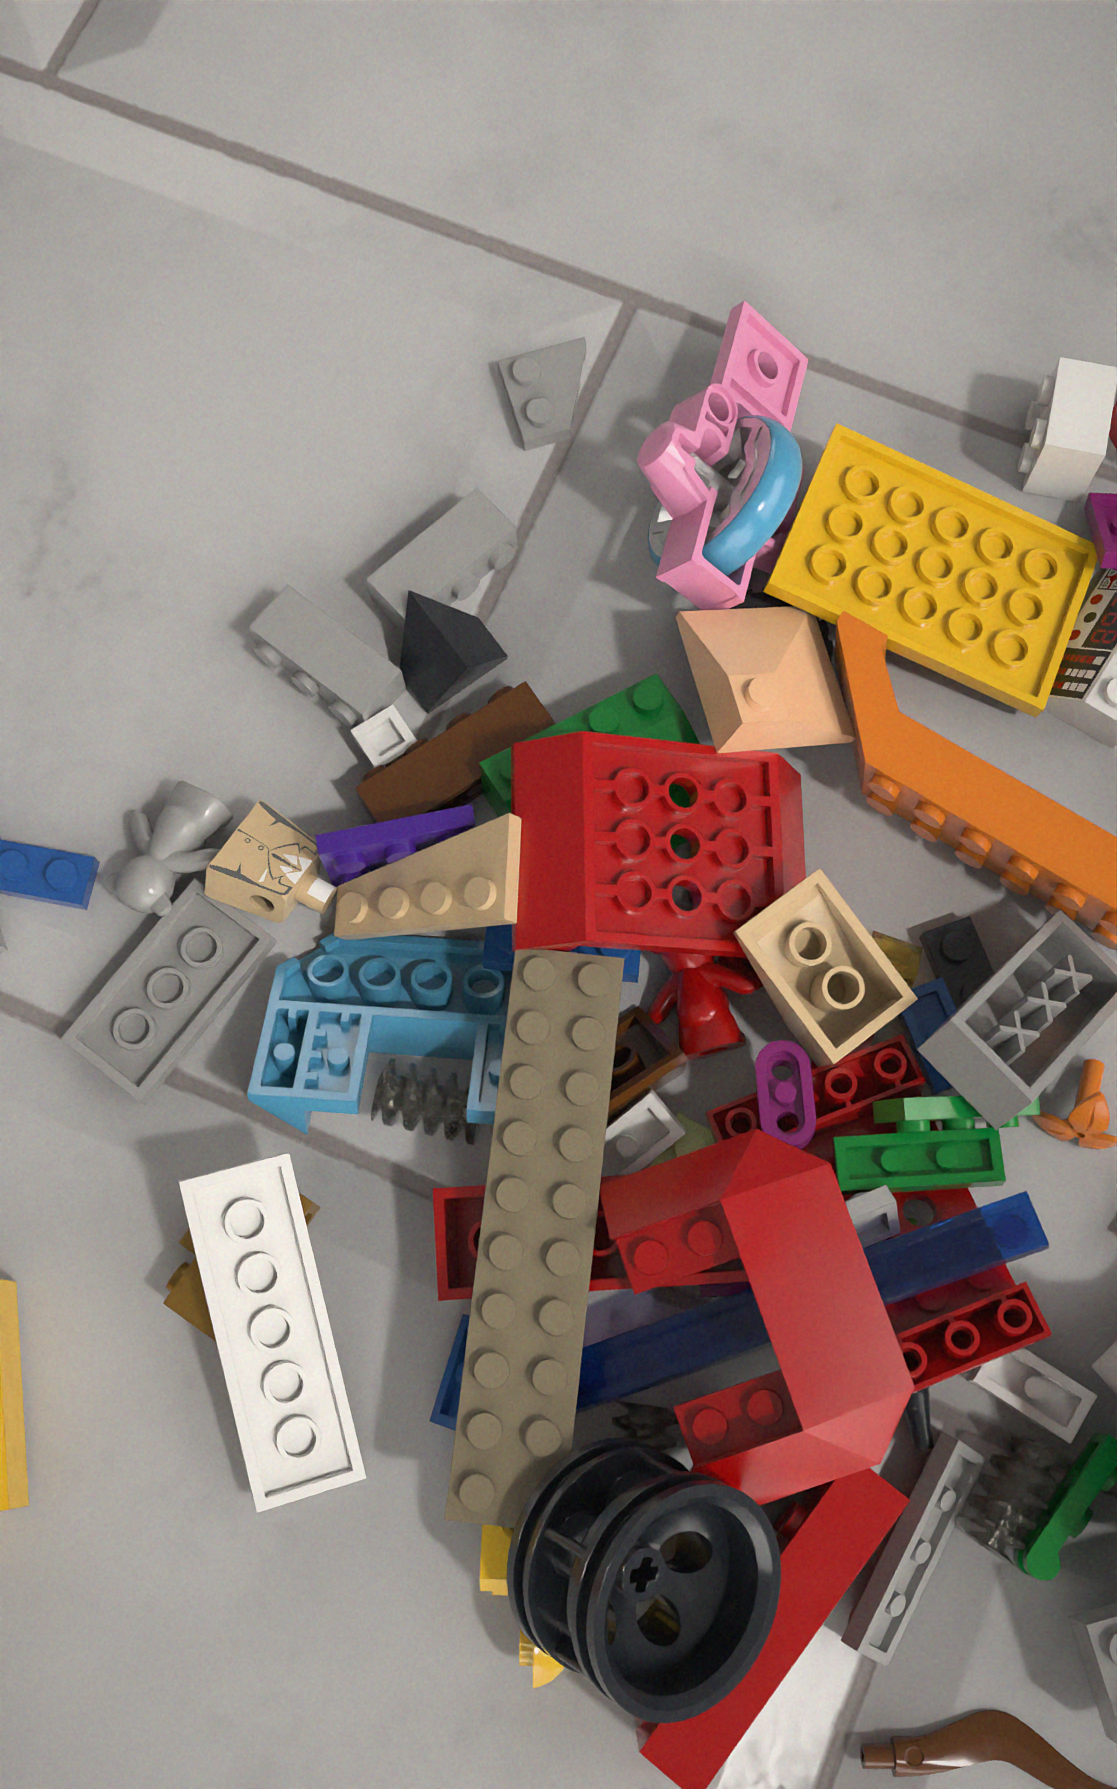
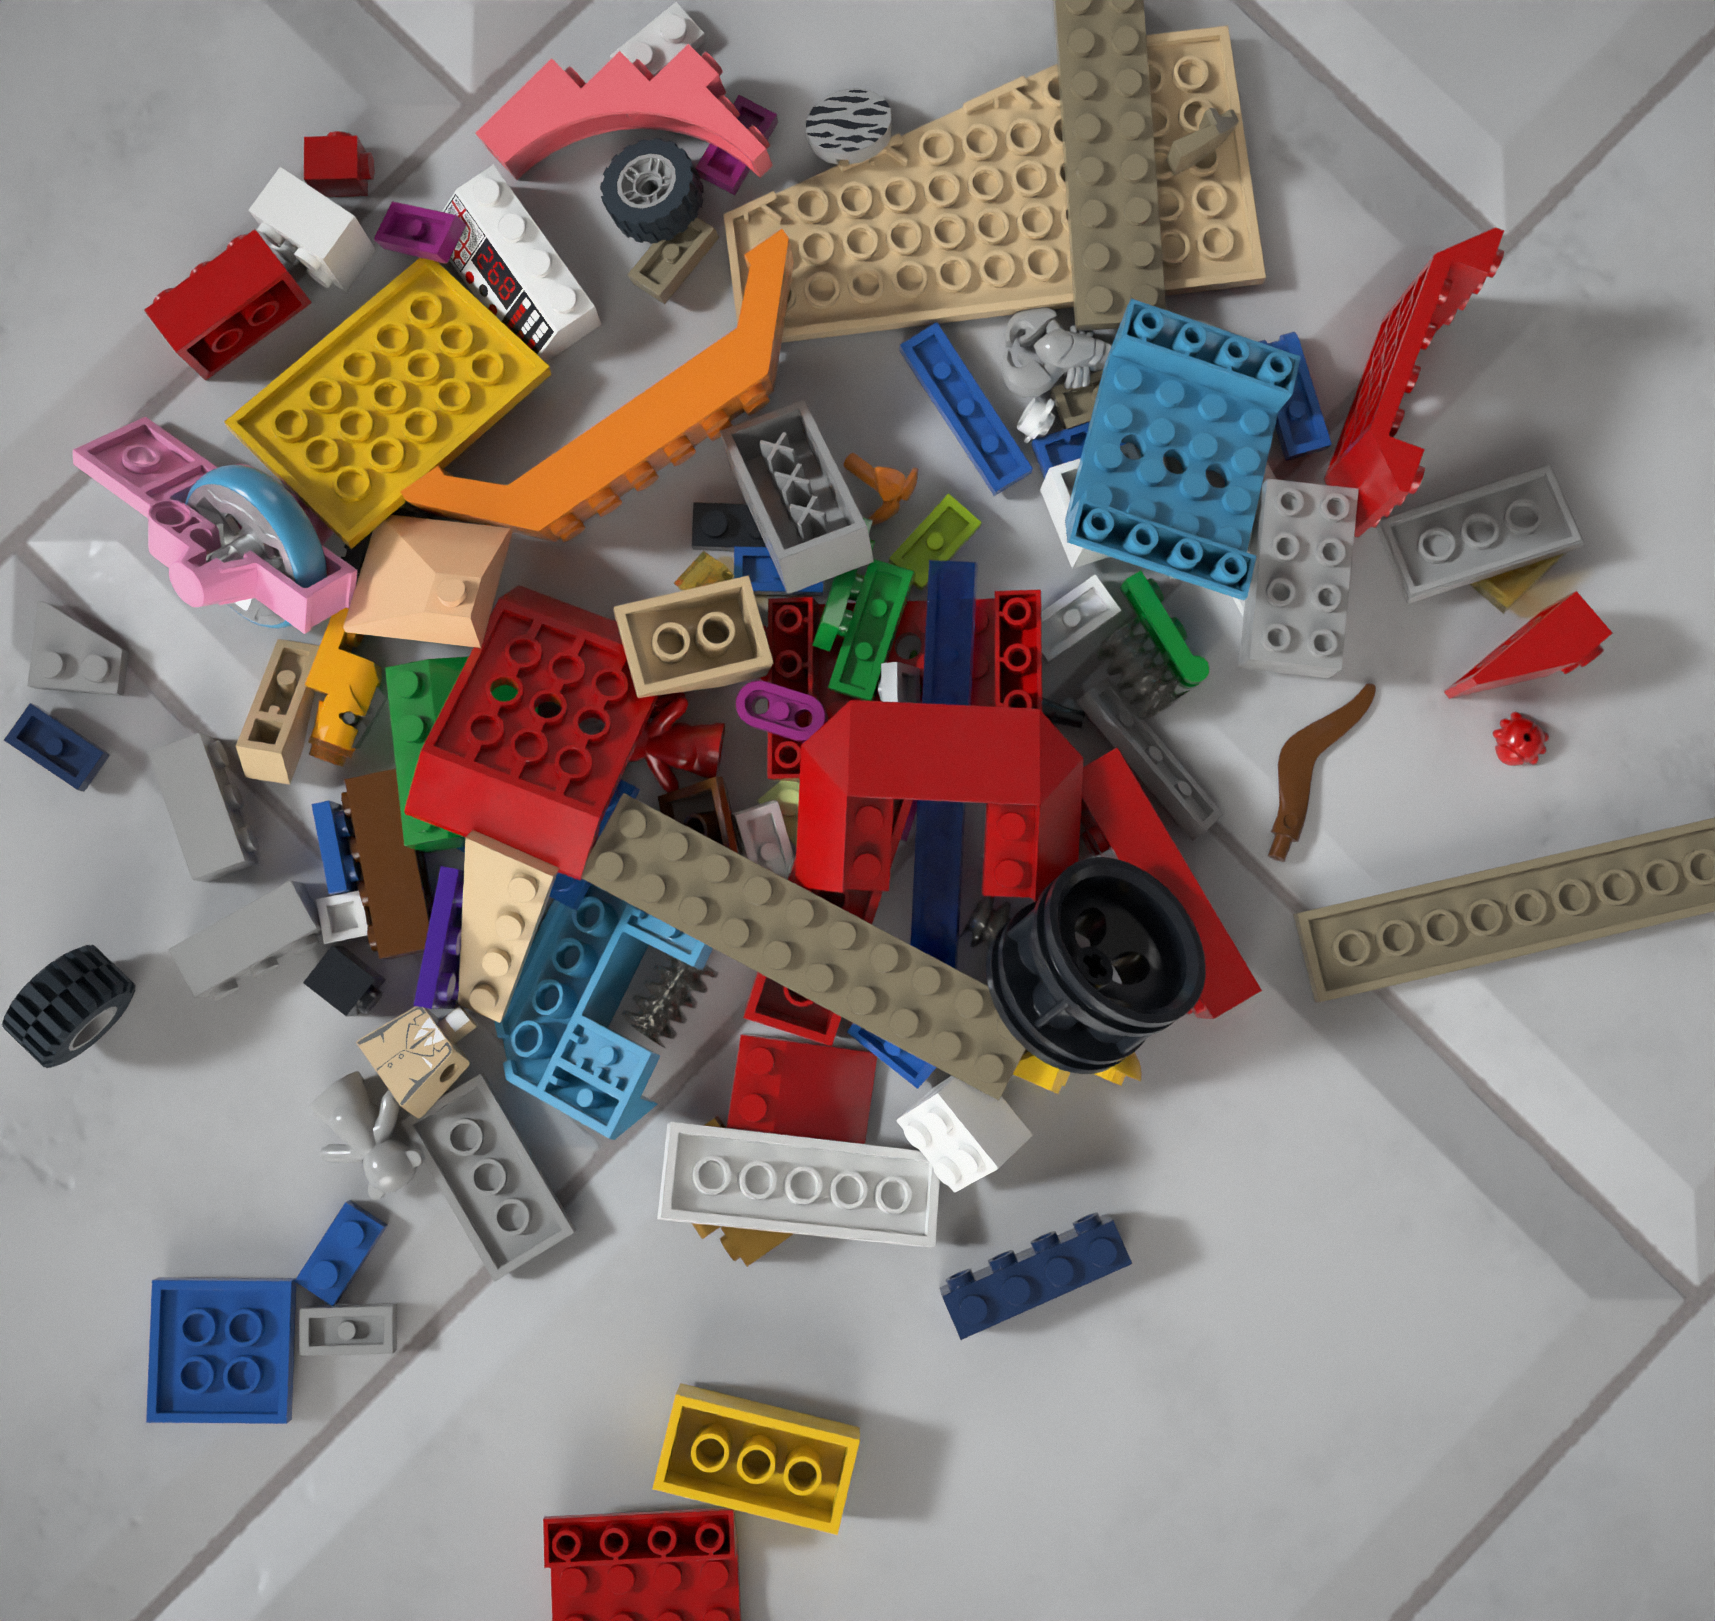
camera: 75 degrees left, 10 degrees up
(196, 515) = (68, 1006): none -> black wheel
(264, 1646) = (1034, 1275): none -> dark blue brick
(319, 767) = (345, 982): none -> black brick
(380, 1288) = (802, 1089): none -> red slope
(396, 1494) = (963, 1132): none -> white brick
(444, 650) = (281, 836): black slope -> none
(448, 410) = (57, 747): none -> dark blue plate
(462, 695) = (333, 833): none -> blue plate
(567, 596) = (279, 715): none -> tan slope
(614, 656) = (351, 693): none -> light orange plate
(955, 383) = (227, 305): none -> red brick
(1056, 1195) = (936, 539): none -> lime plate

